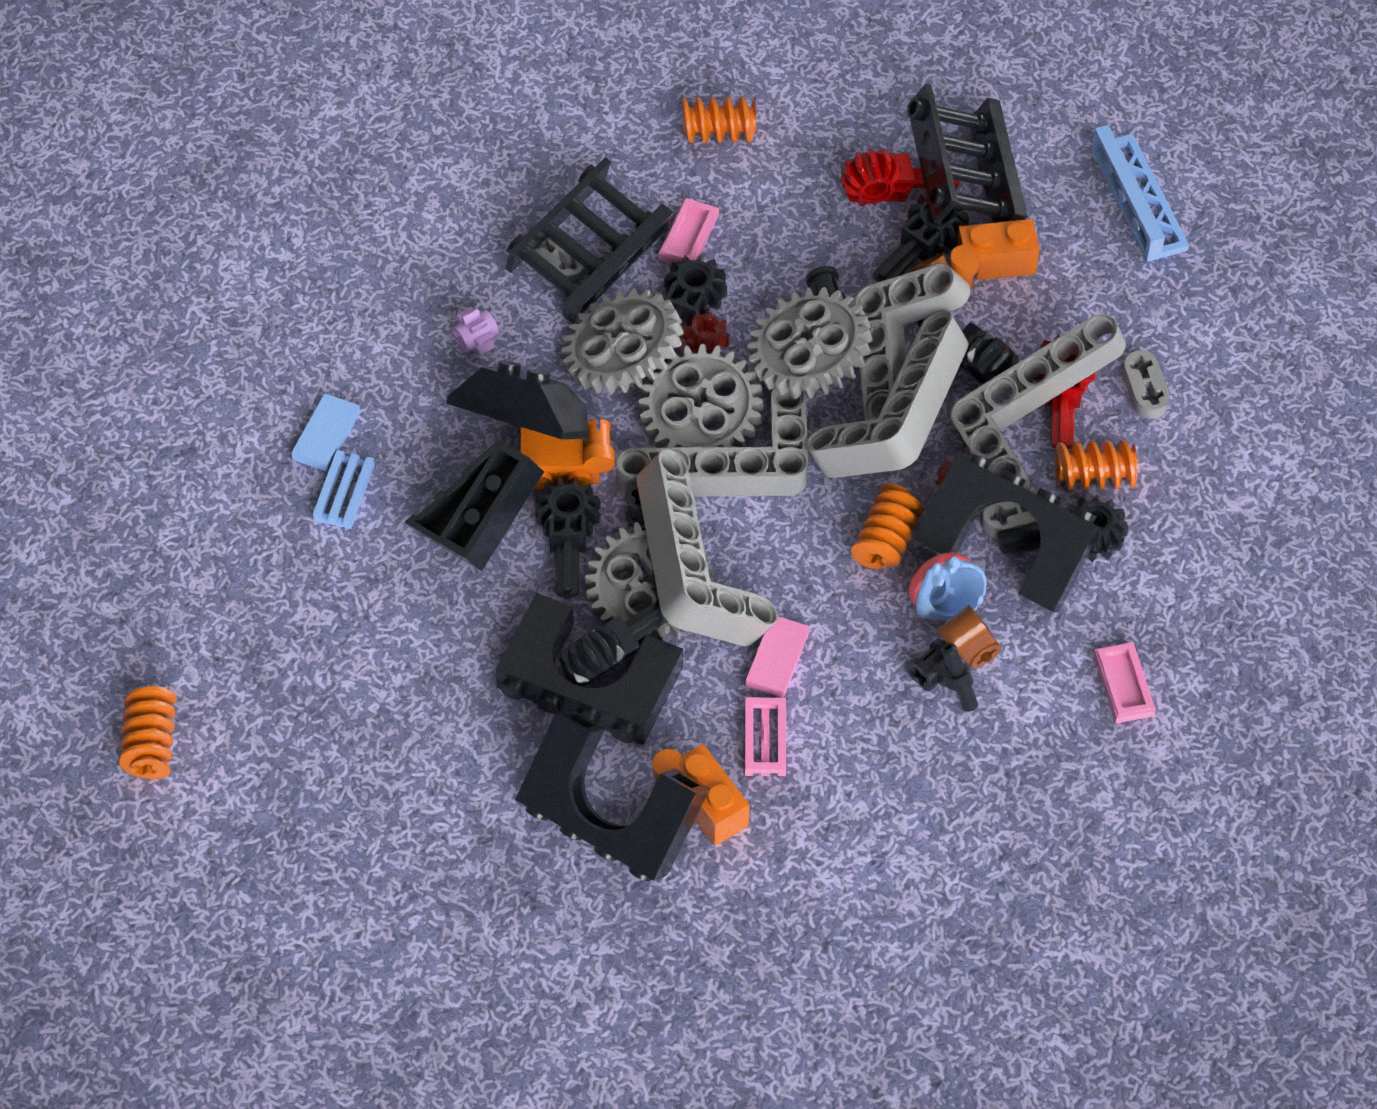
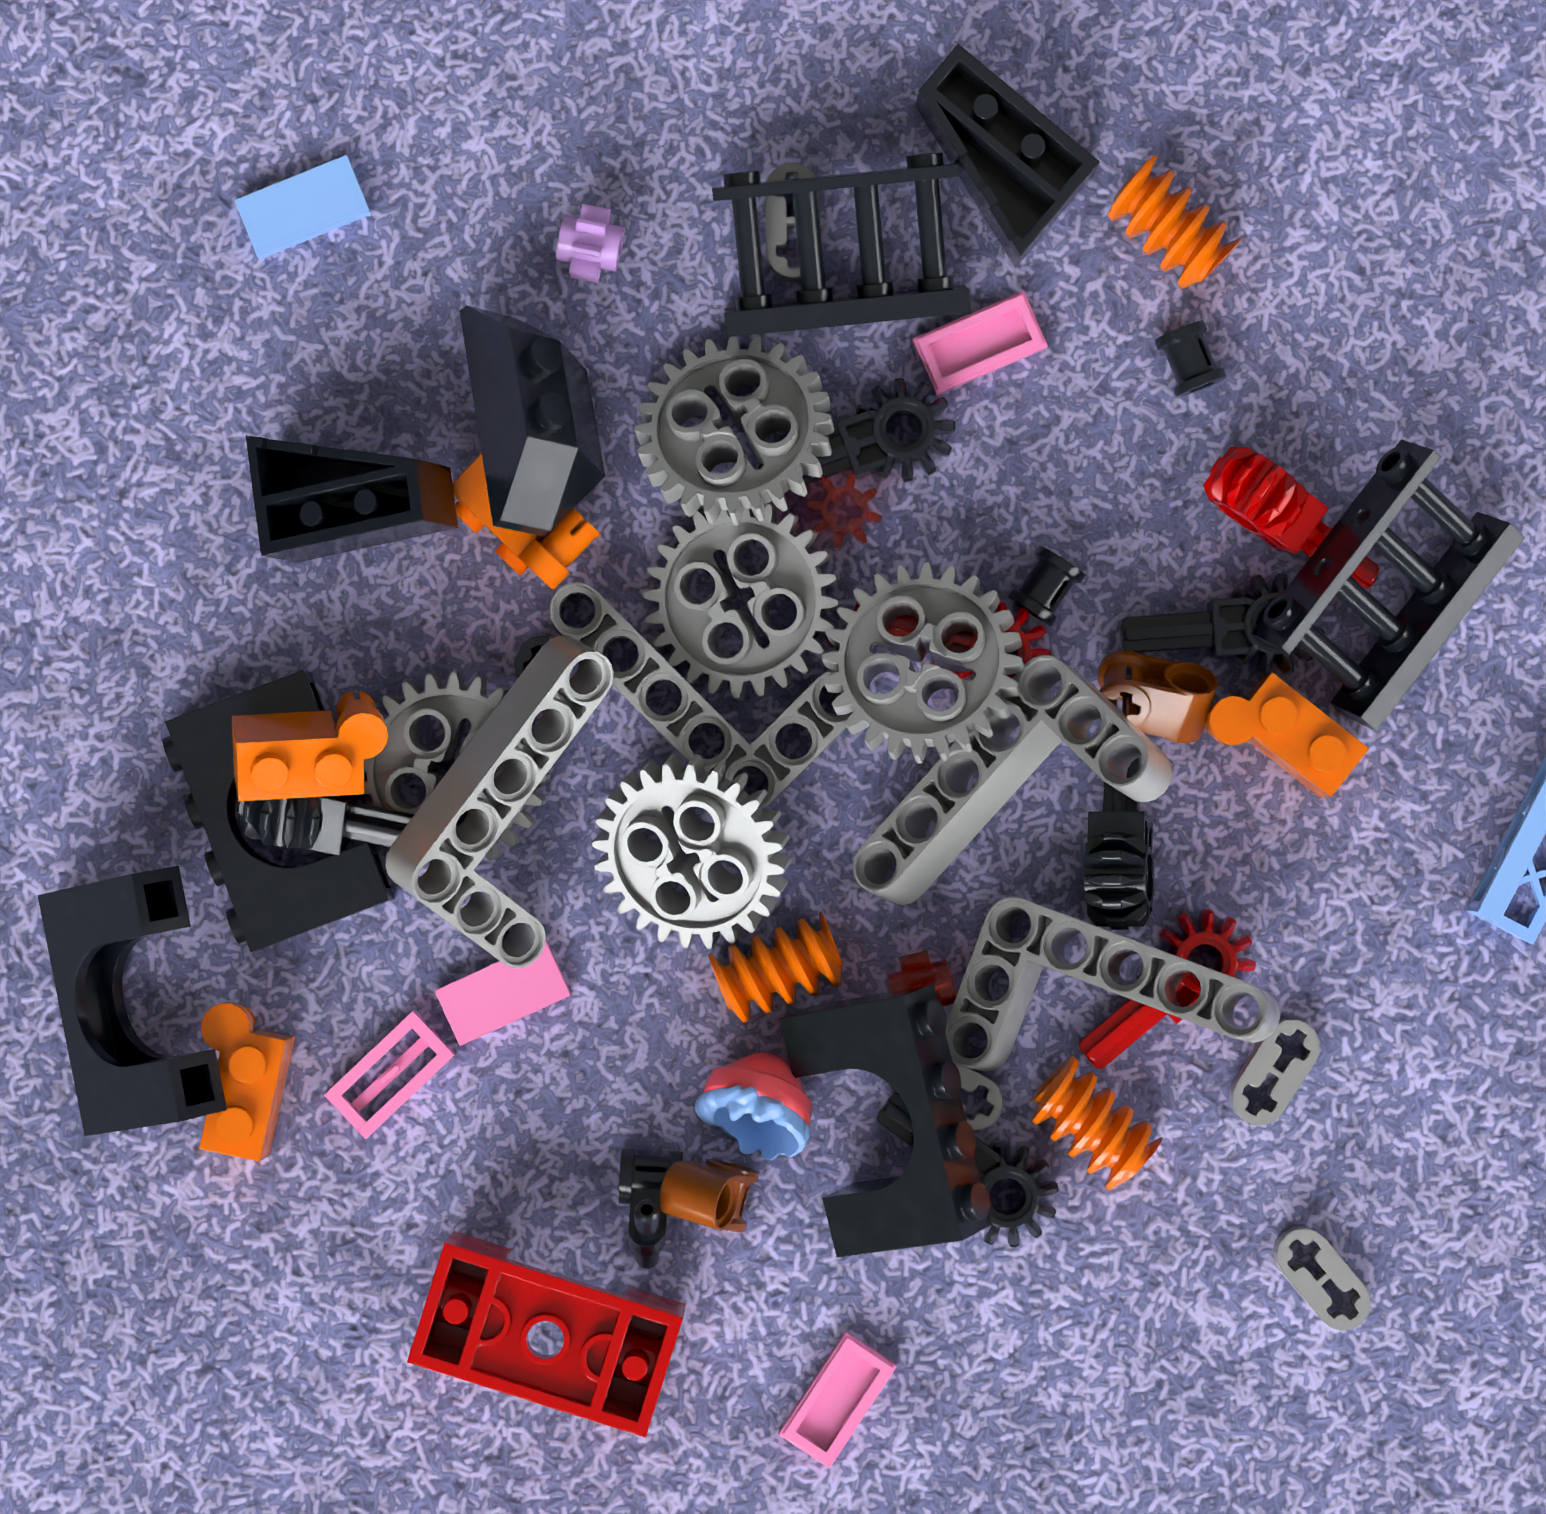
camera: 45 degrees right, 30 degrees up
(352, 463) = (240, 282): light blue tile -> none
(567, 530) = (427, 614): black gear -> none
(586, 605) = (306, 750): none -> orange hinge
(631, 141) = (1006, 151): none -> black wedge
(784, 161) = (1190, 358): none -> black bush
(807, 476) = (692, 851): none -> gear
(908, 413) = (939, 855): light grey beam -> none
(925, 770) = (481, 1322): none -> red plate
(1264, 442) = (1332, 1268): none -> light grey beam

